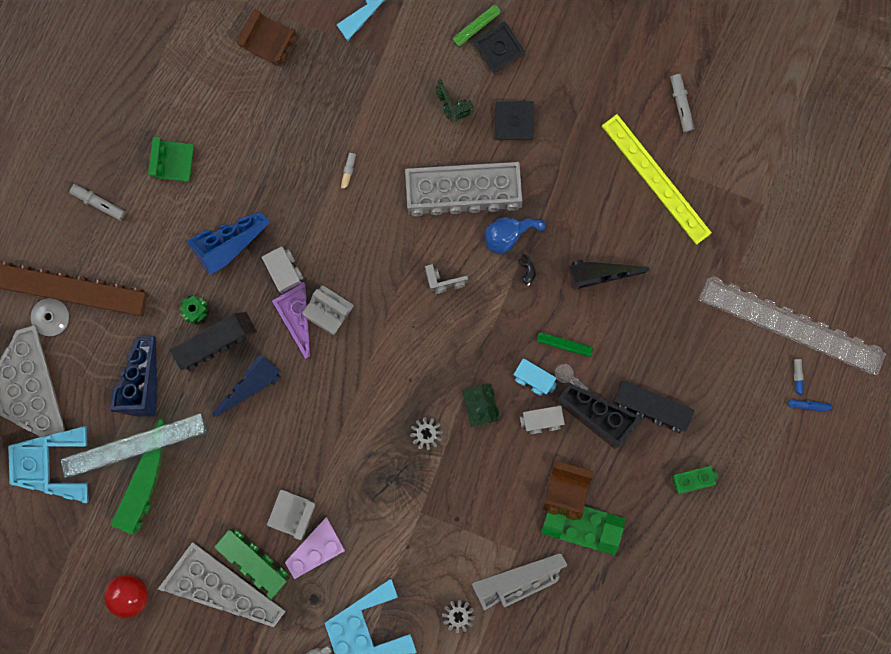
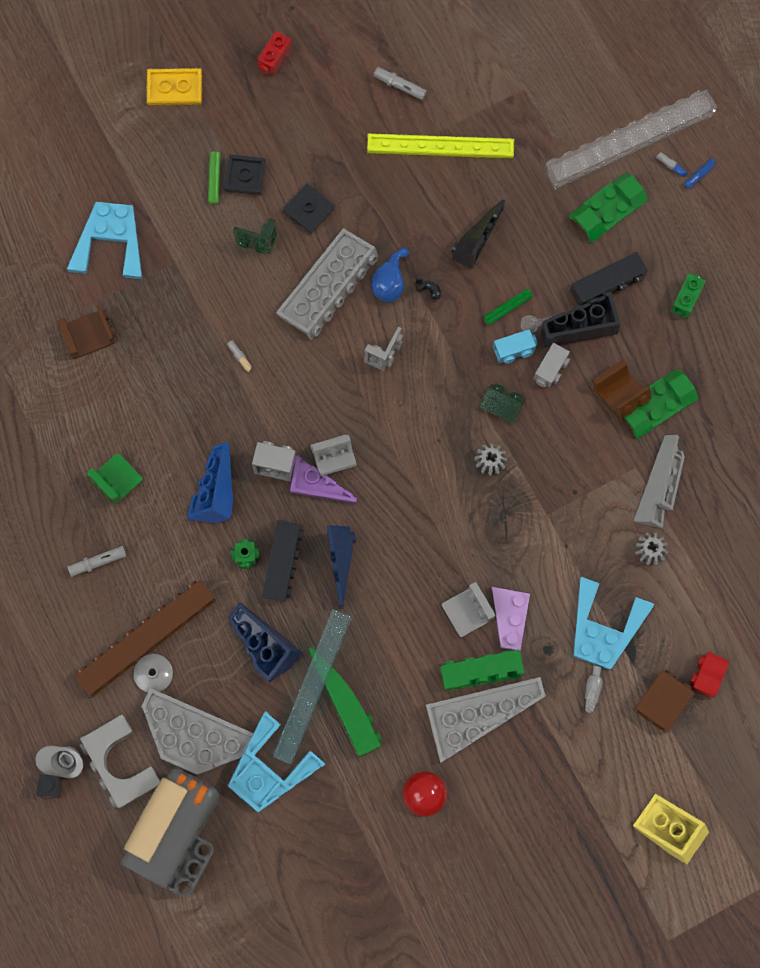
camera: 55 degrees left, 10 degrees down
(718, 355) = (609, 206): none -> green piece

